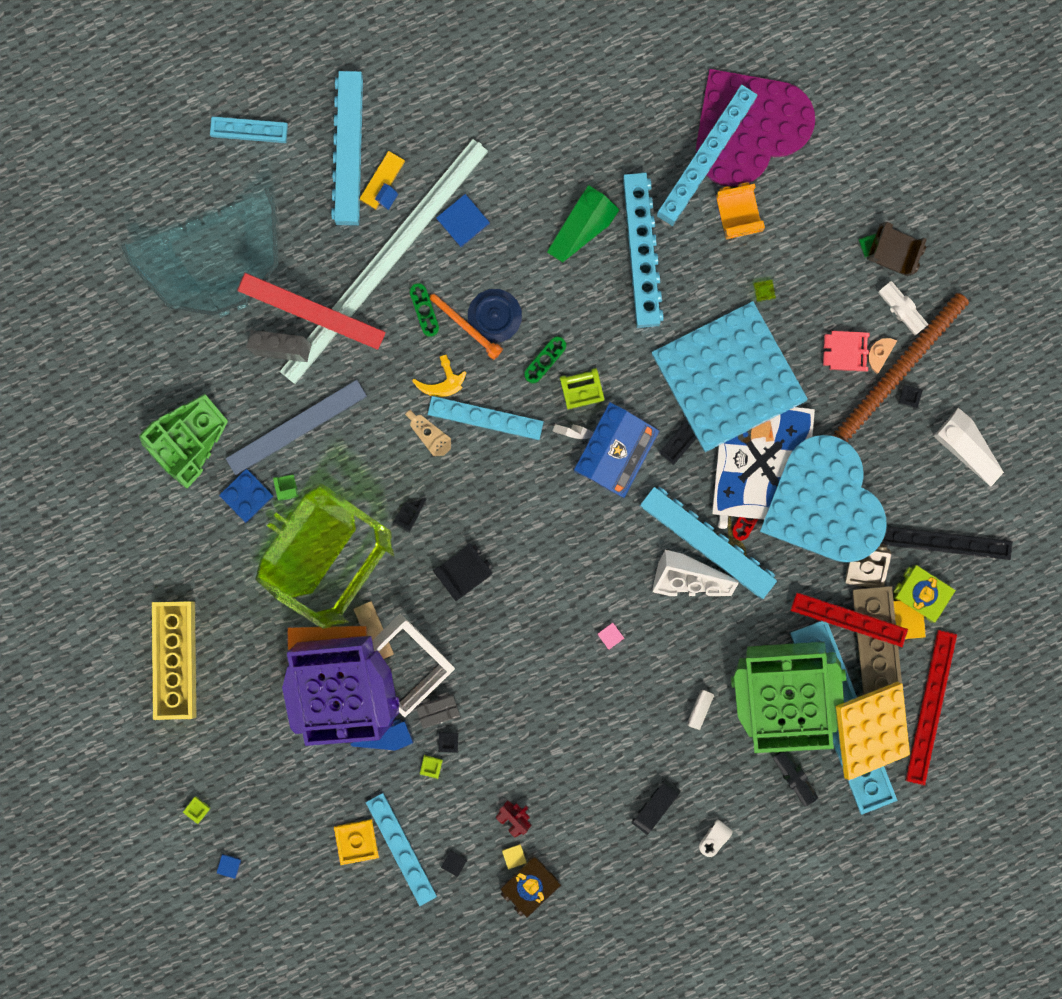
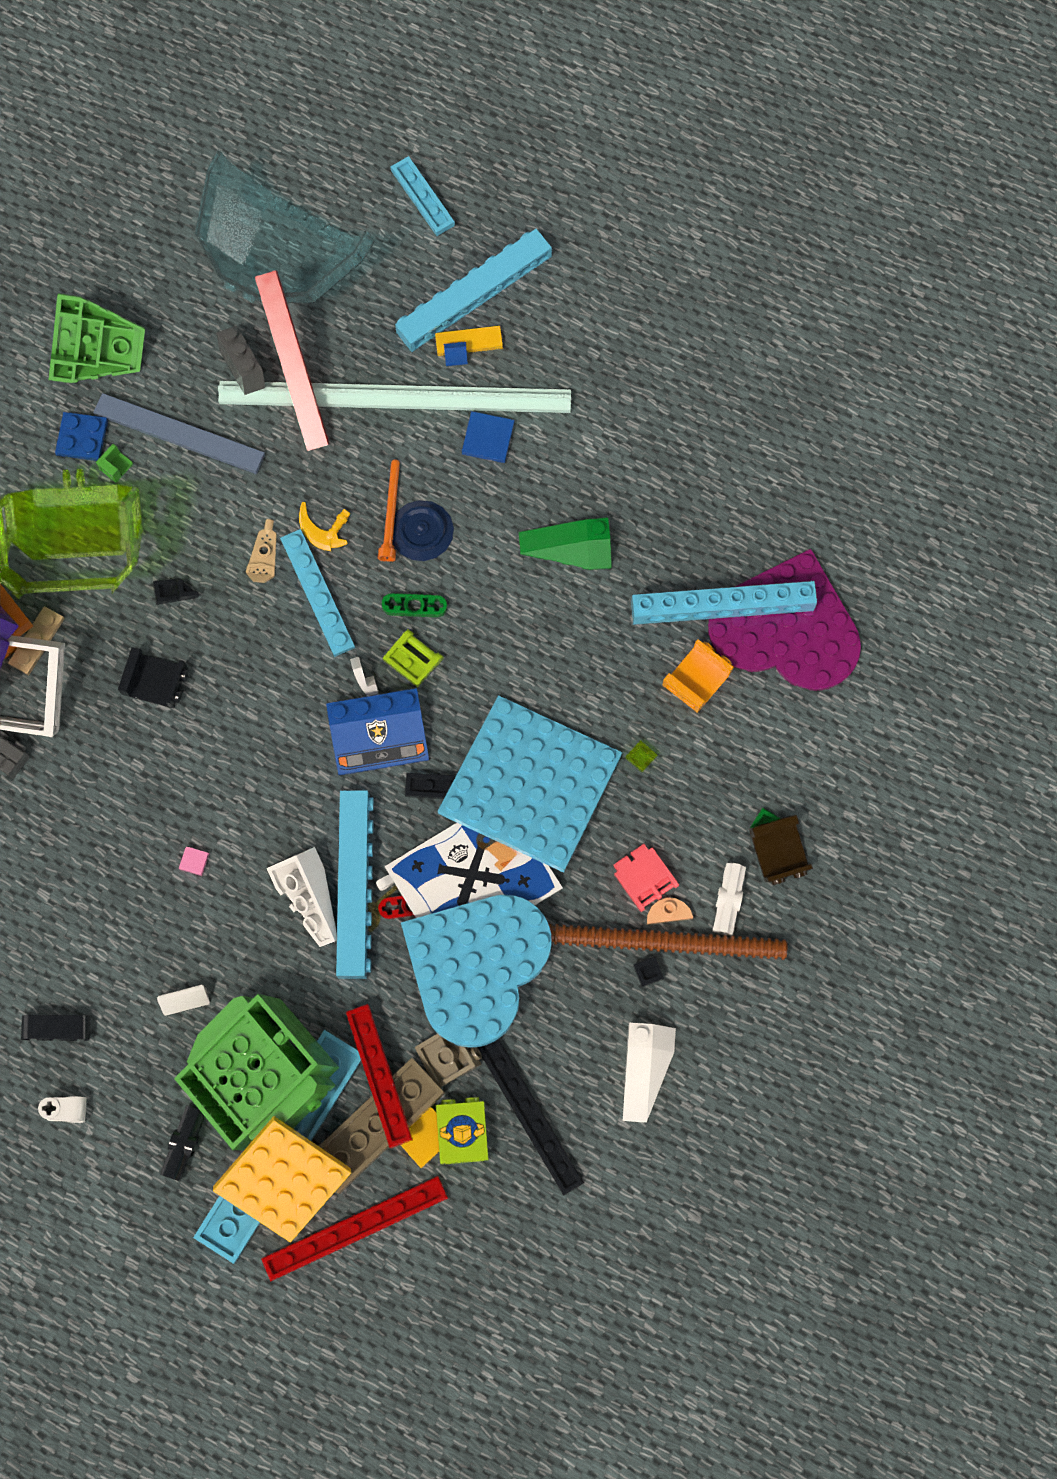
camera: 55 degrees right, 10 degrees down
(428, 303) = (362, 474): green beam -> none
(634, 183) = (643, 559): medium azure brick -> none

